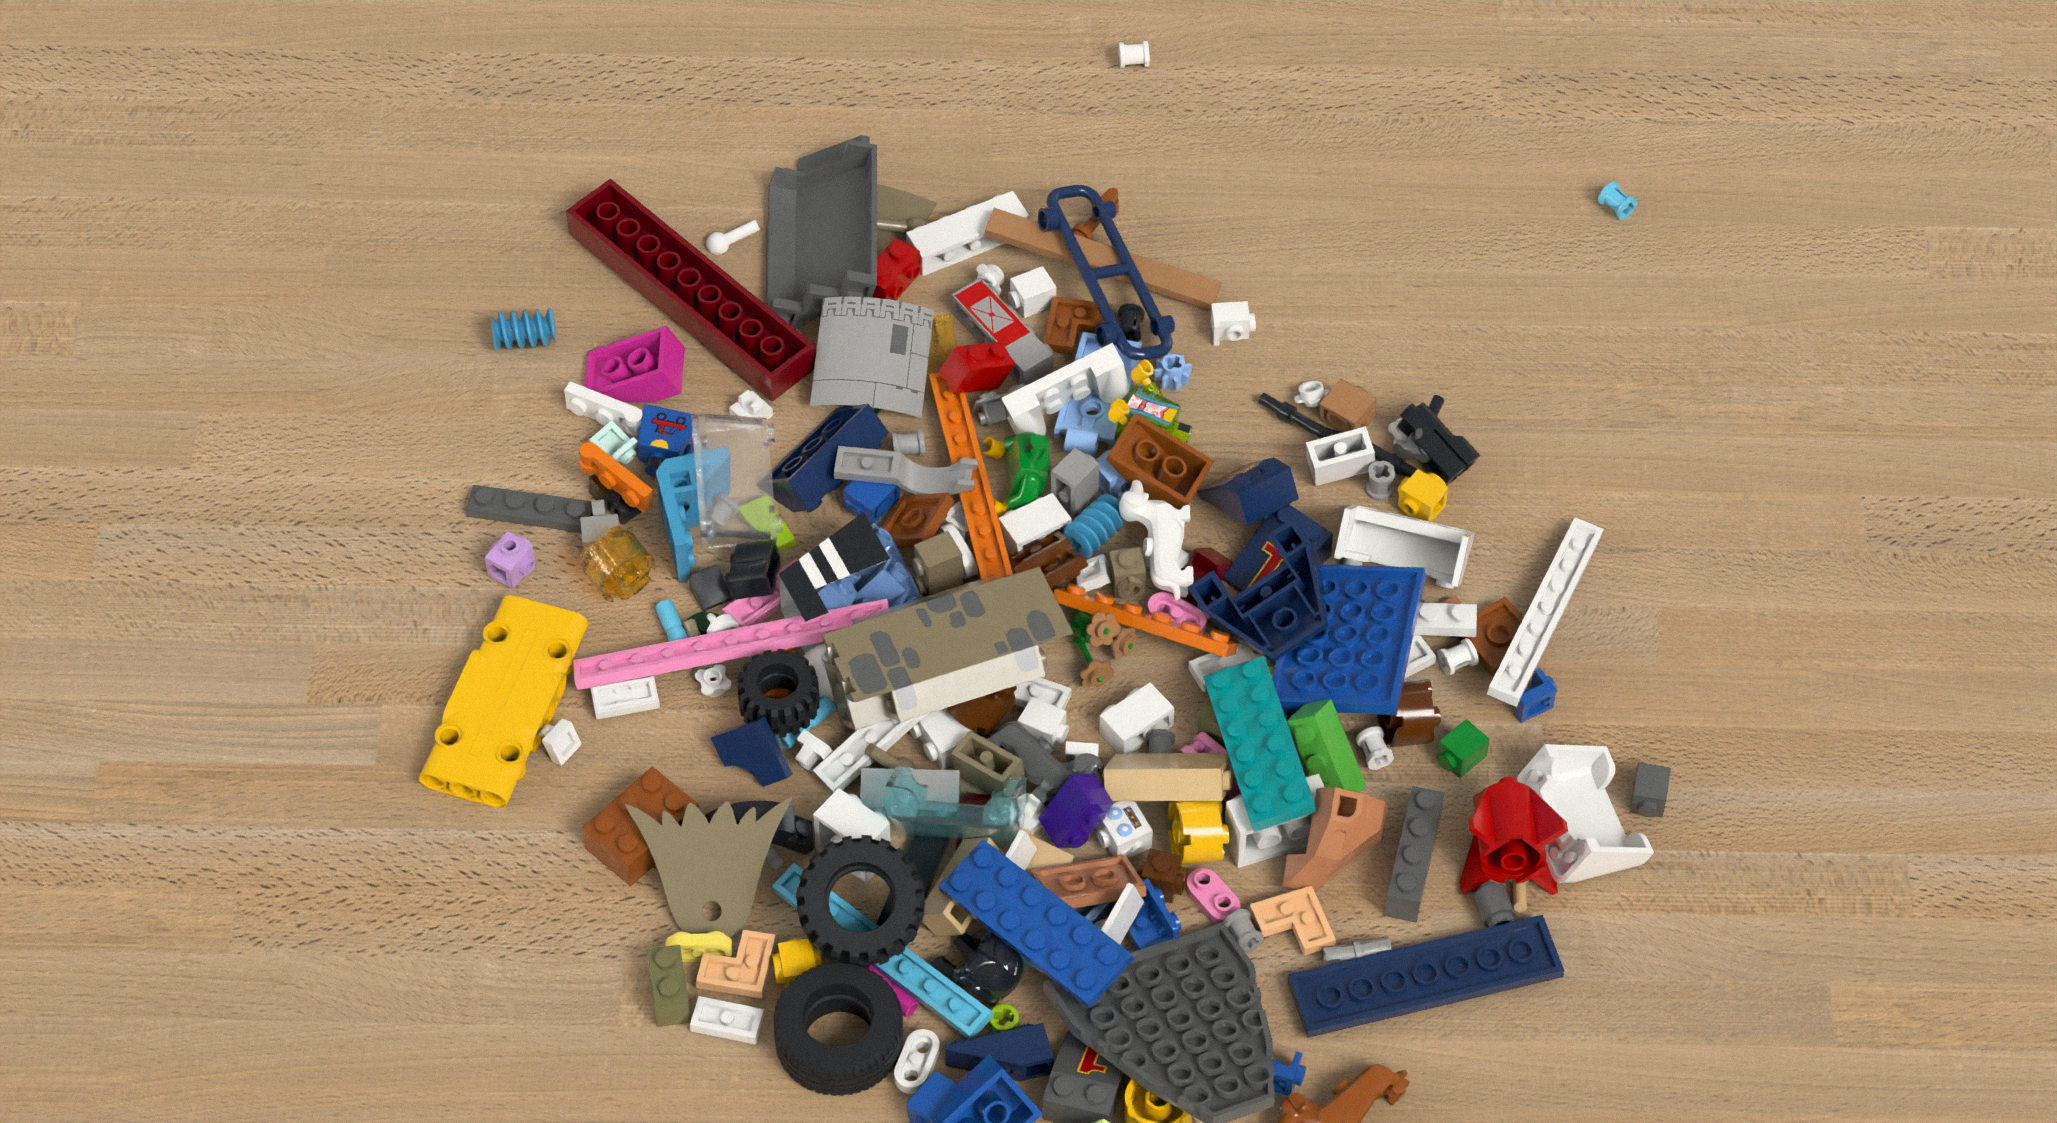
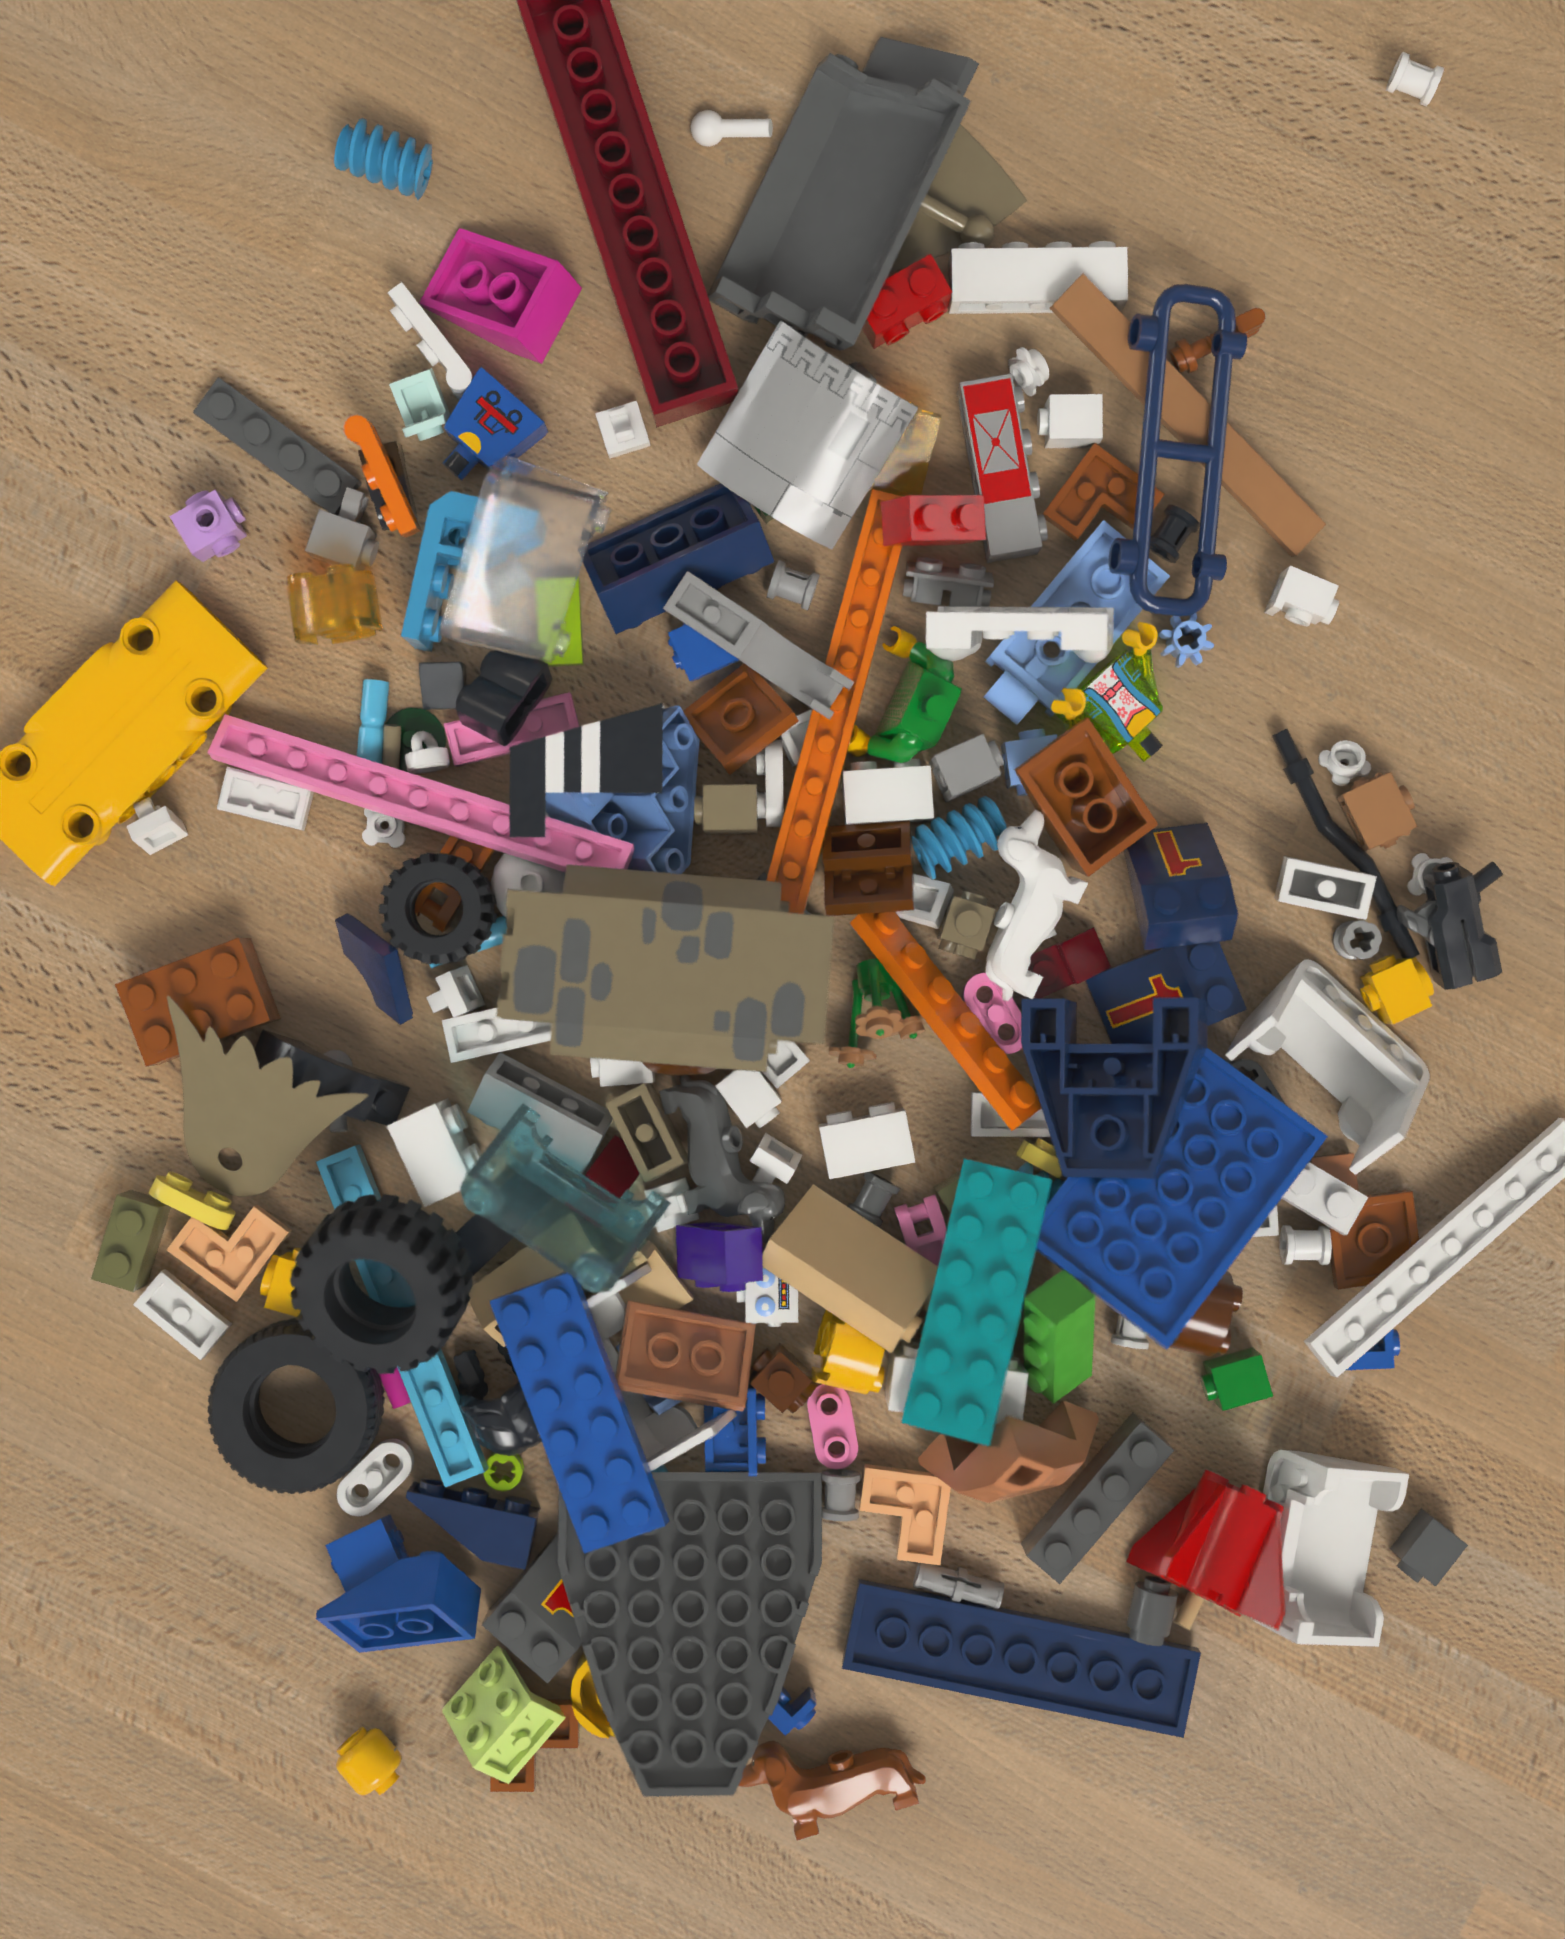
camera: 30 degrees right, 35 degrees up
(886, 759) = (550, 1066): dark tan bar -> none

